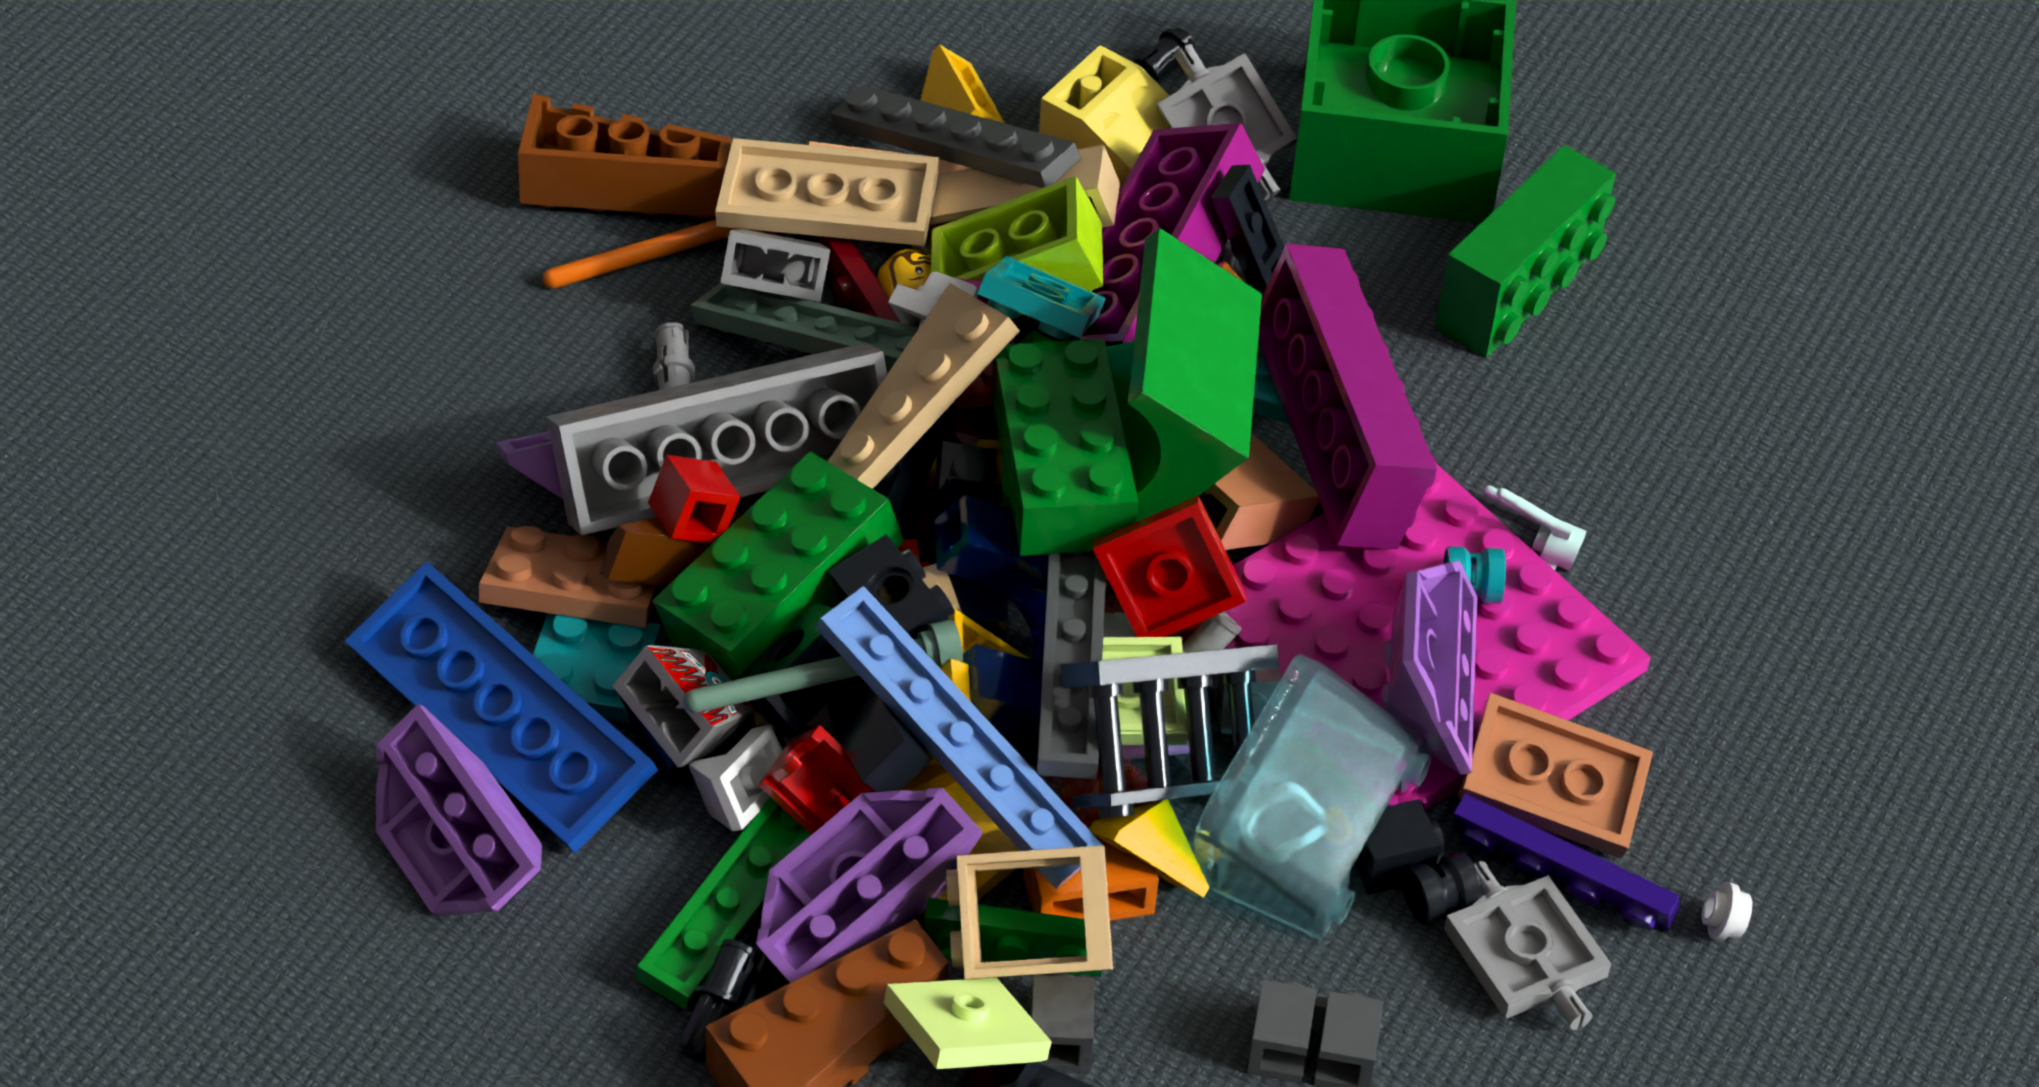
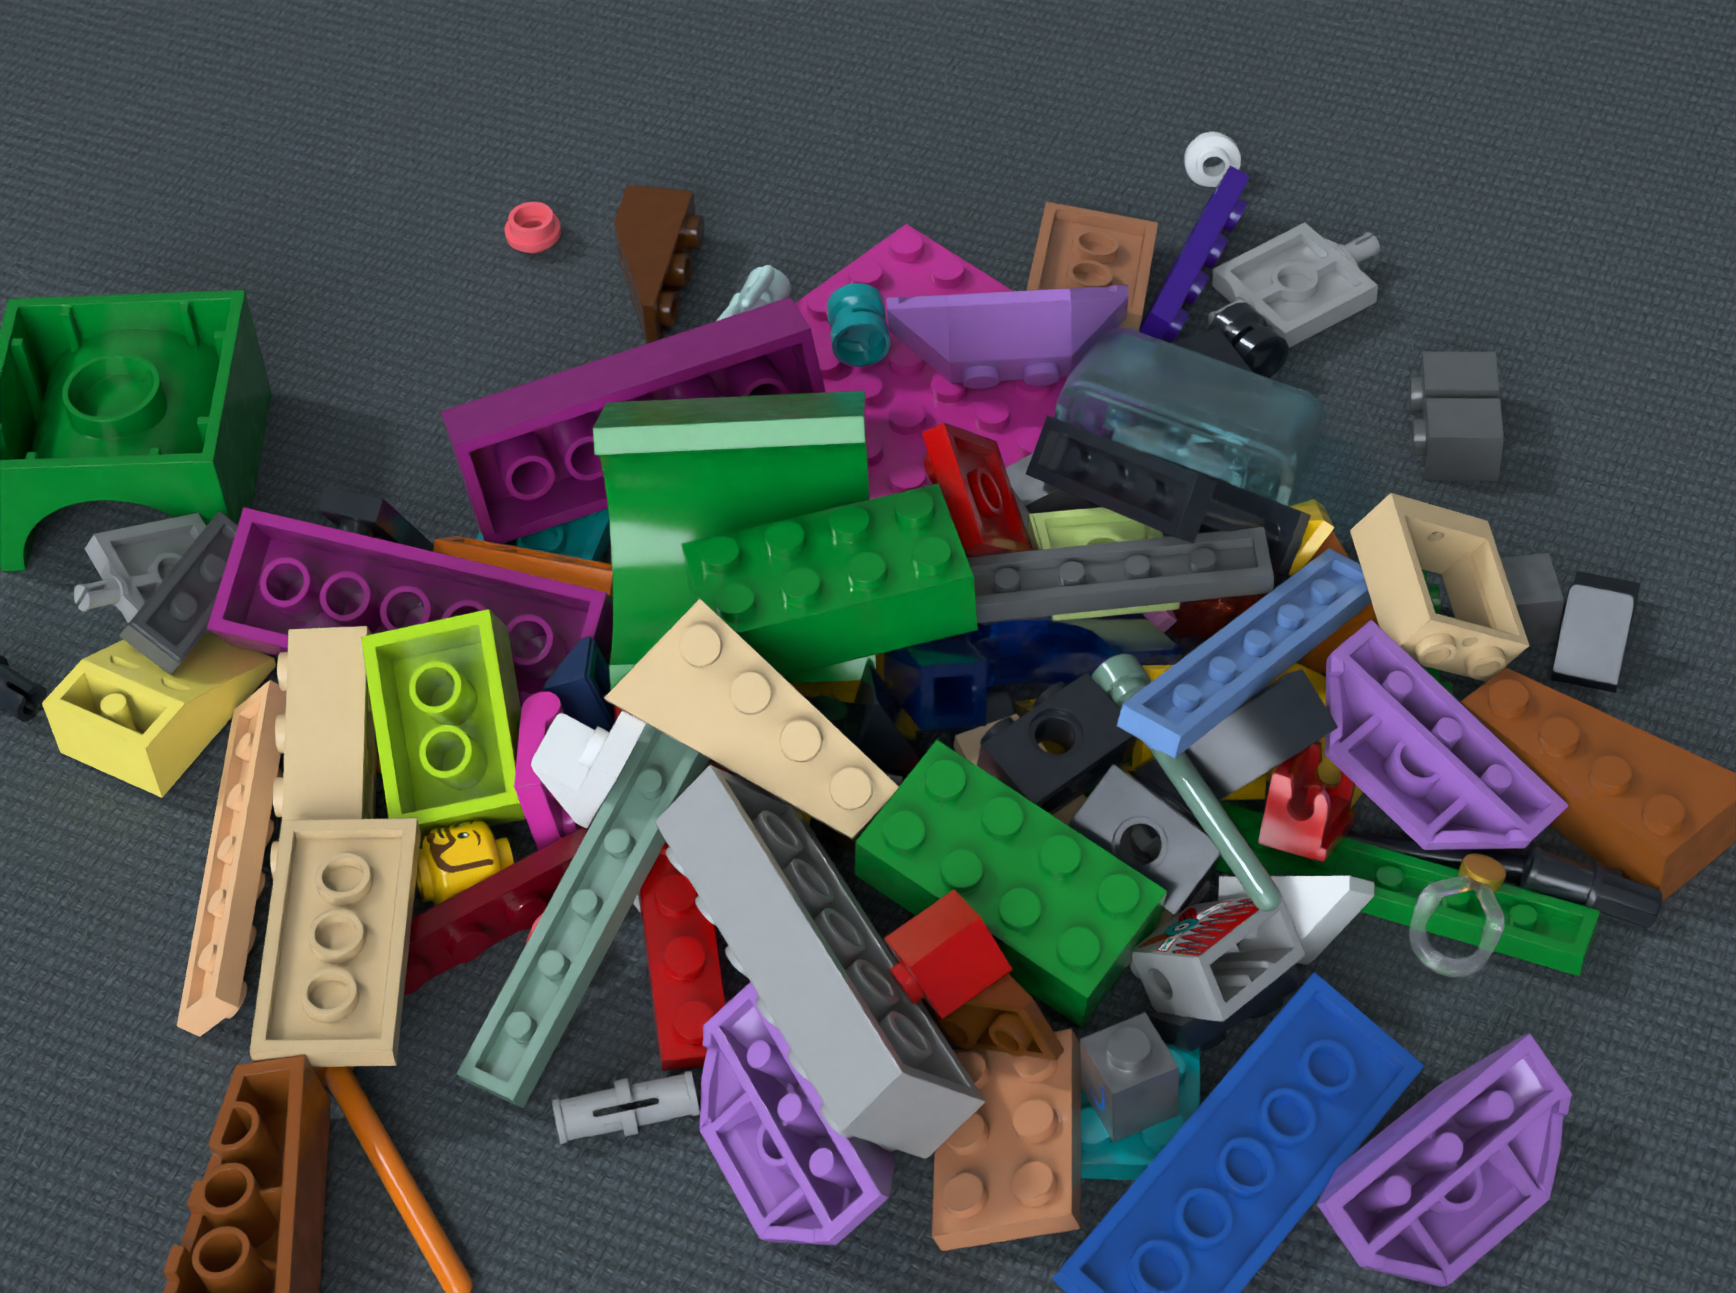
camera: 90 degrees left, 0 degrees up
(583, 627) = (1129, 1077): none -> flat silver brick
(737, 911) = (1475, 873): none -> clear piece
(775, 264) = (466, 985): light grey torso -> none
(955, 85) = (82, 890): yellow slope -> none
(955, 136) = (216, 832): dark grey plate -> none
(967, 1023) = (1596, 628): yellowish green plate -> none
(1056, 303) = (599, 625): teal plate -> none
(1167, 106) = (183, 602): none -> dark grey tile
(1525, 251) = (362, 321): green brick -> none
(1615, 464) = (654, 247): none -> reddish brown slope
(1674, 392) = (532, 227): none -> coral plate

